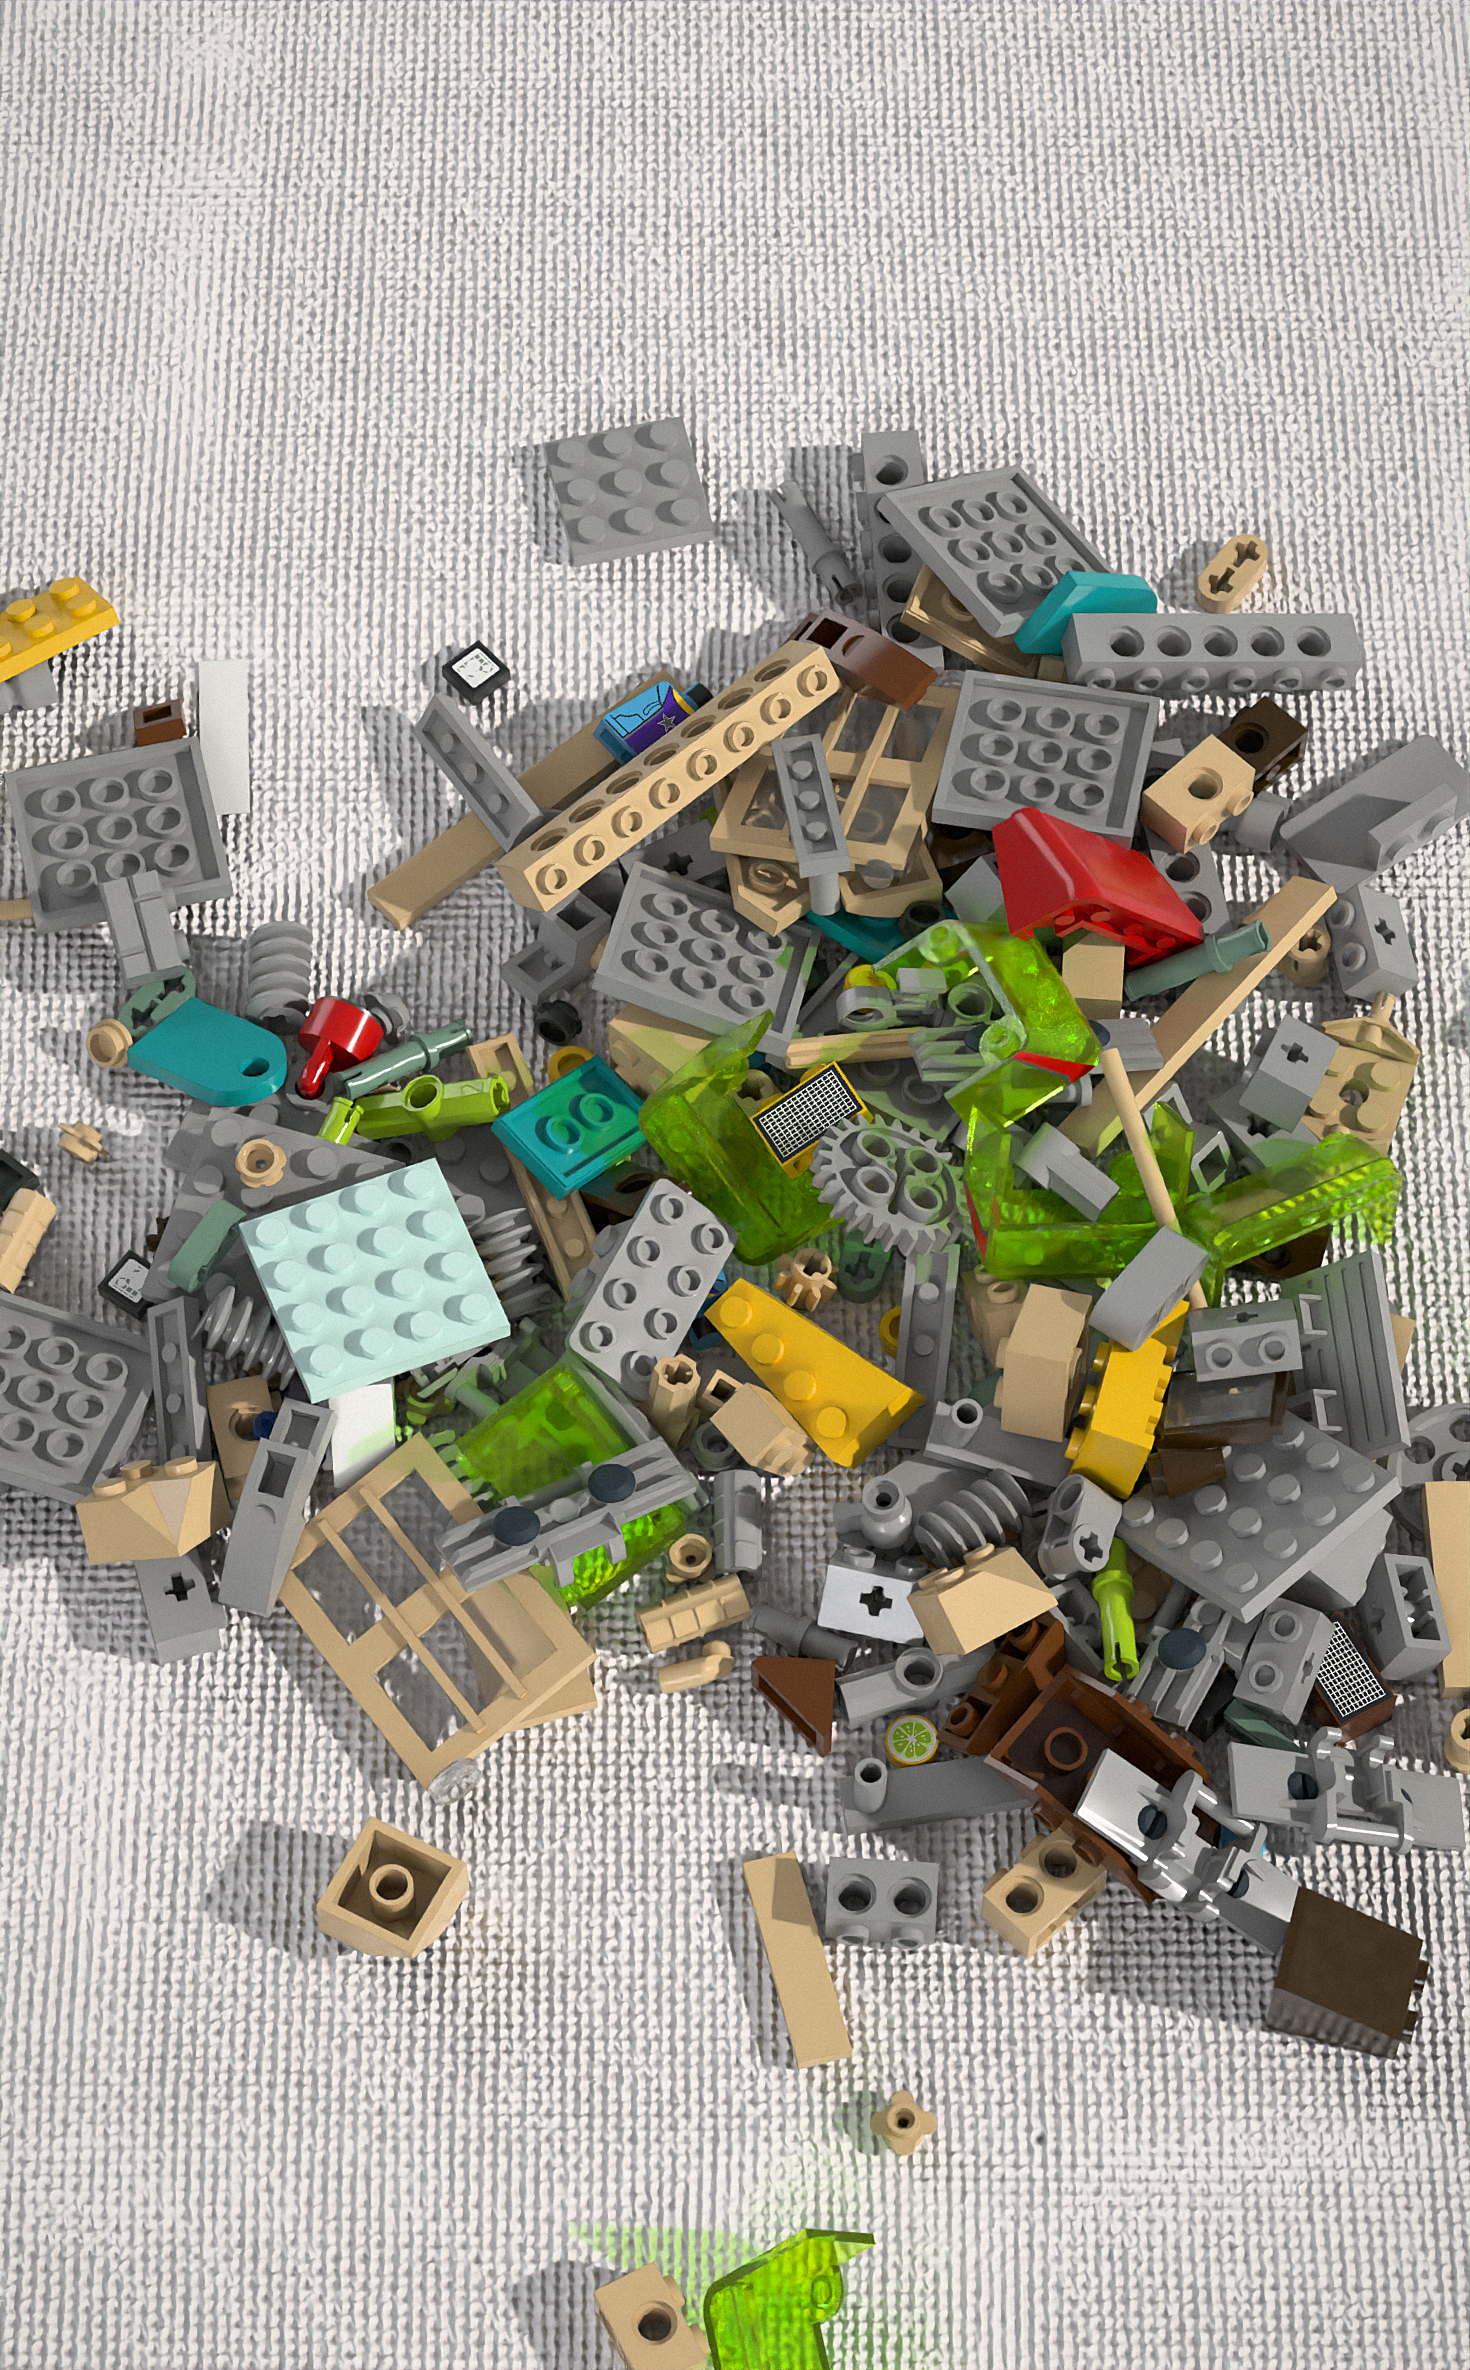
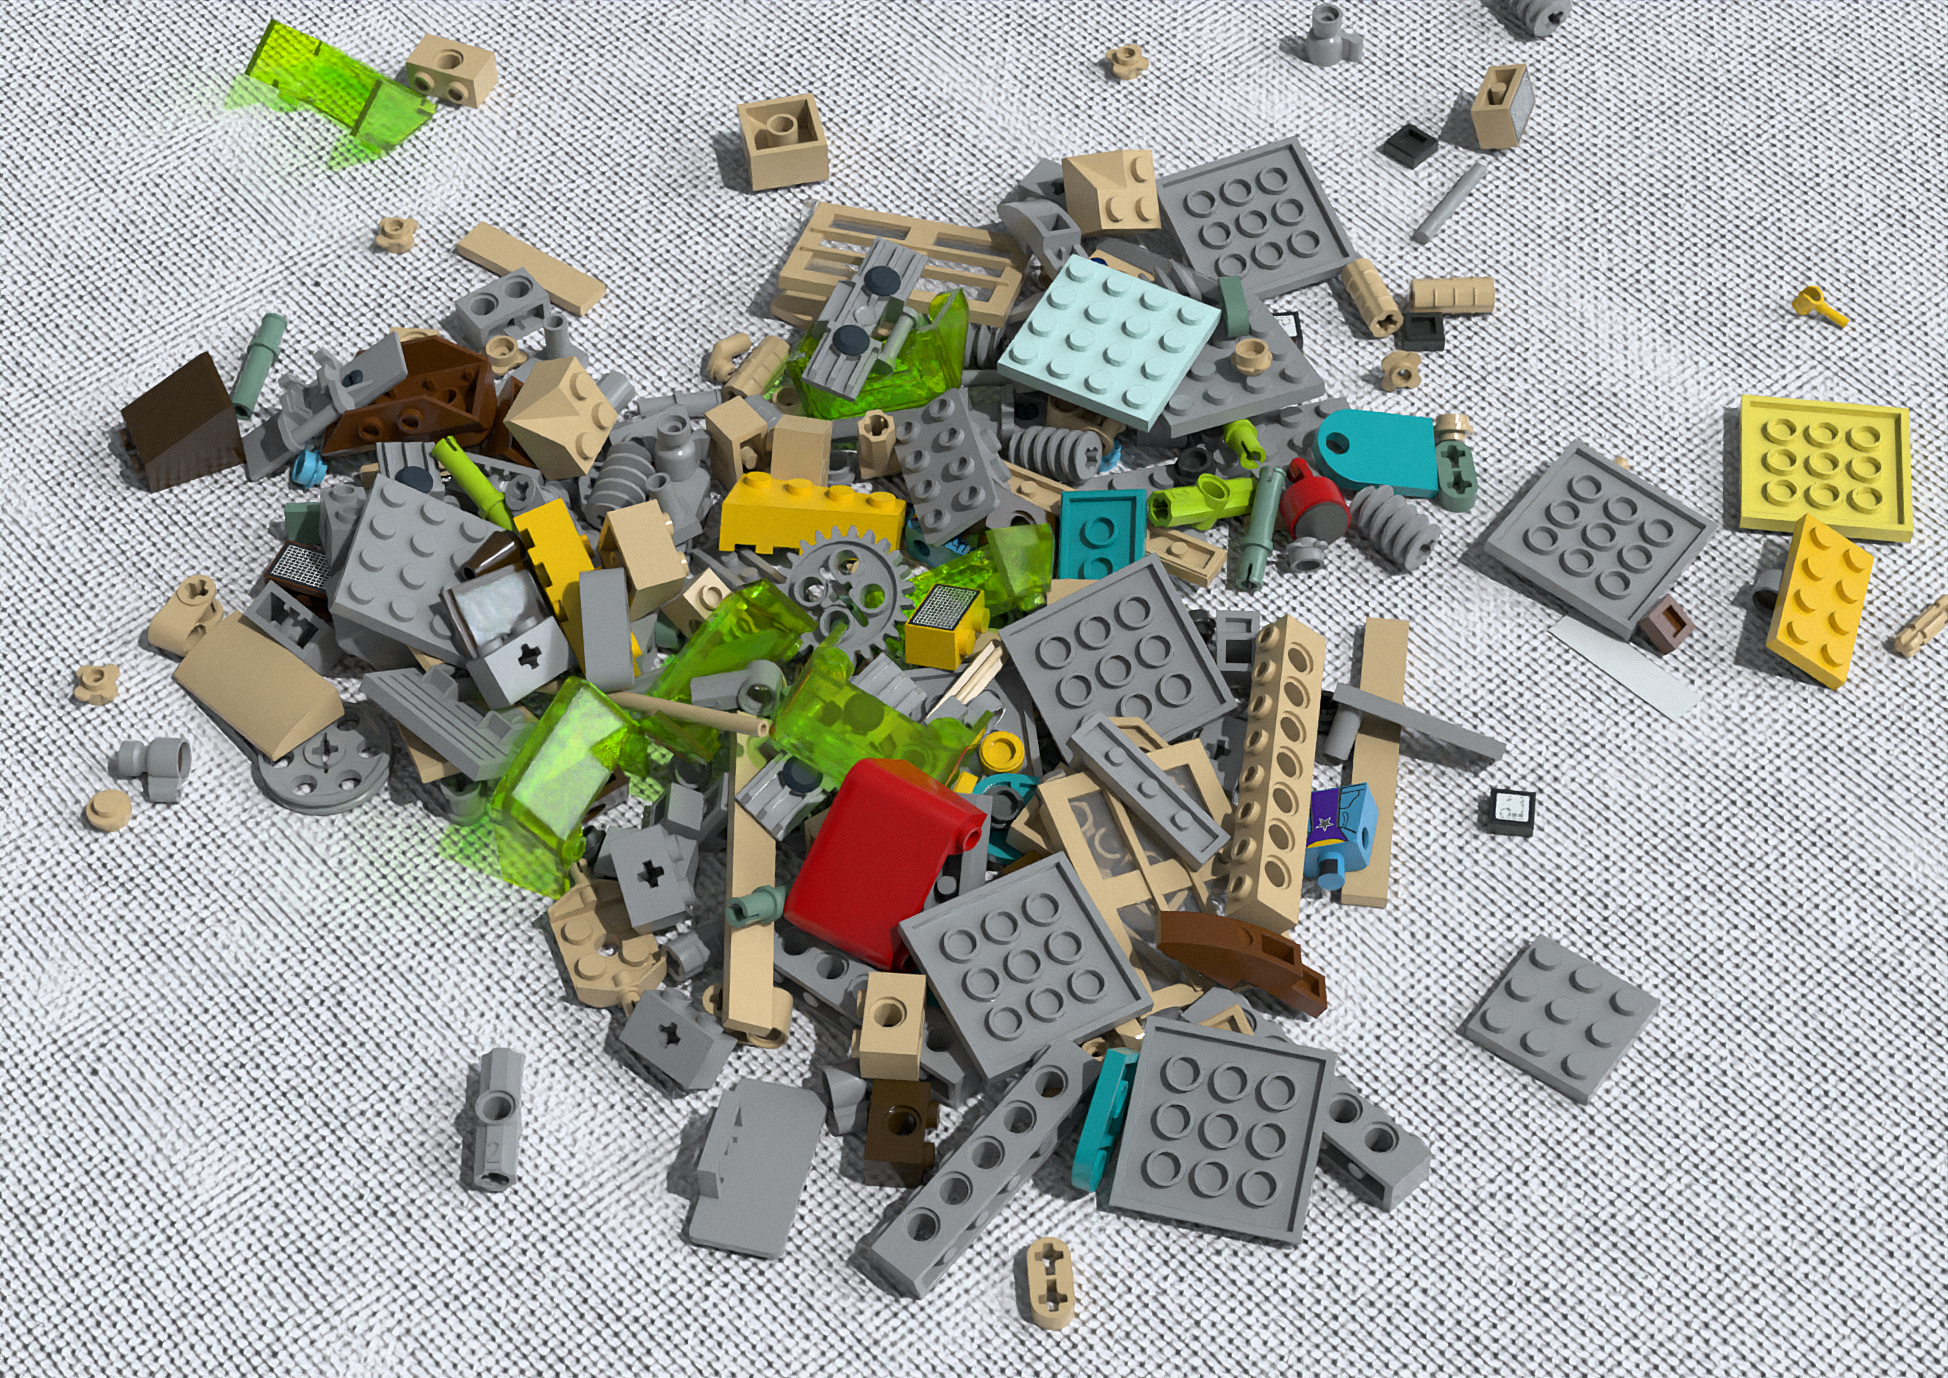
camera: 140 degrees right, 10 degrees down
(142, 928) = (1502, 467): light grey brick -> none
(717, 1383) = (855, 474): tan piece -> none
(801, 1693) = (651, 370): reddish brown slope -> none
(806, 1500) = (737, 441): none -> tan brick
(825, 557) = (1387, 1072): light grey pin -> none
(926, 1837) = (503, 354): none -> tan plate
(1178, 2048) = (262, 353): none -> sand green pin
(1251, 1018) = (696, 949): none -> light grey axle
(1331, 1780) = (259, 505): light grey piece -> none

